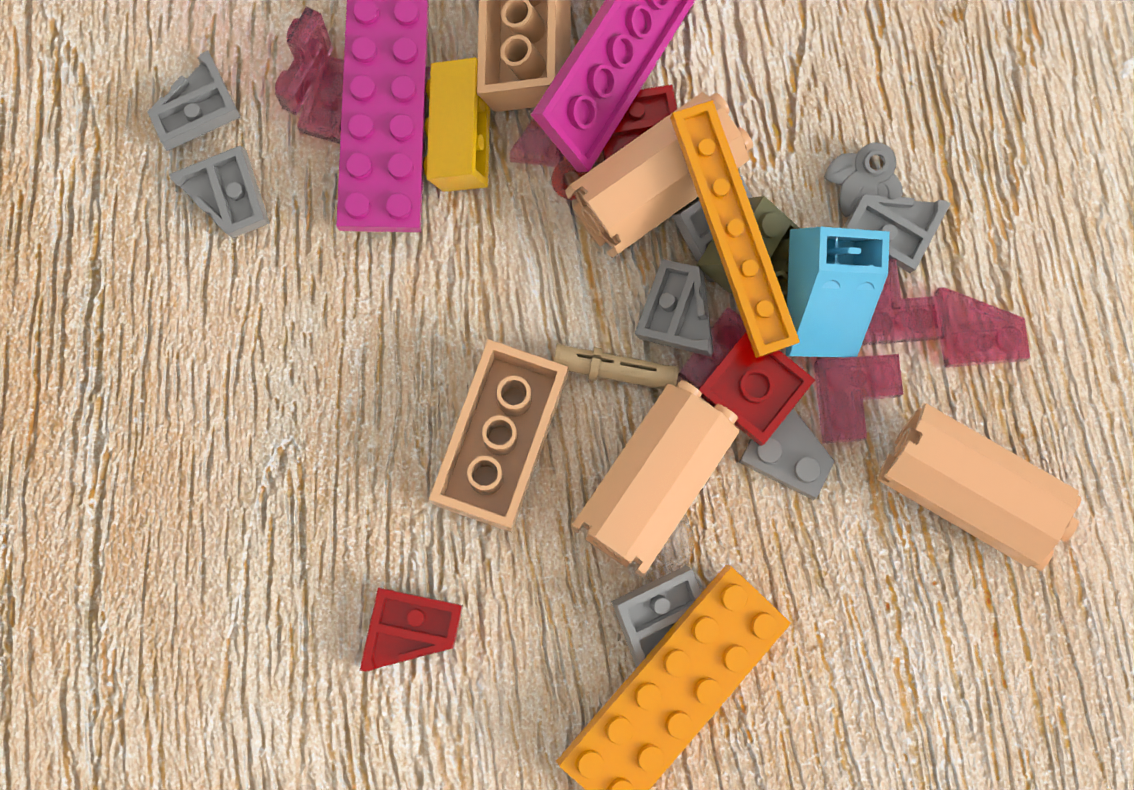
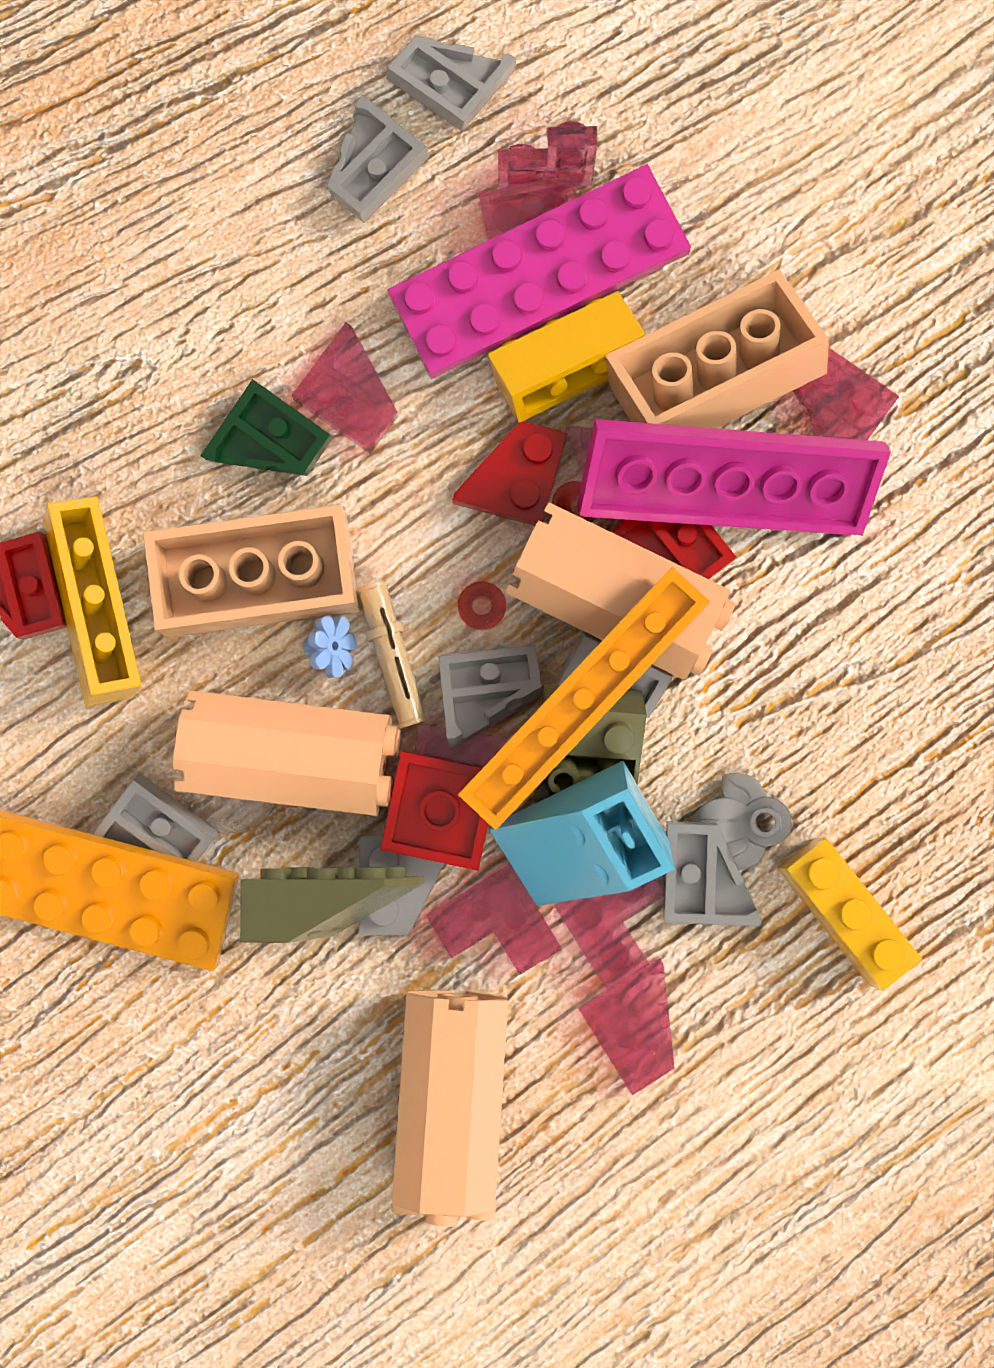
camera: 70 degrees right, 5 degrees up
(394, 300) = (348, 392): none -> clear pink wing
(396, 376) = (267, 435): none -> dark green wing
(456, 572) = (91, 601): none -> yellow brick
(526, 210) = (516, 475): none -> red wing
(585, 410) = (330, 645): none -> light blue plant
(611, 272) = (481, 590): none -> clear red plate
(781, 522) = (316, 902): none -> olive slope
(970, 138) = (849, 913): none -> yellow brick

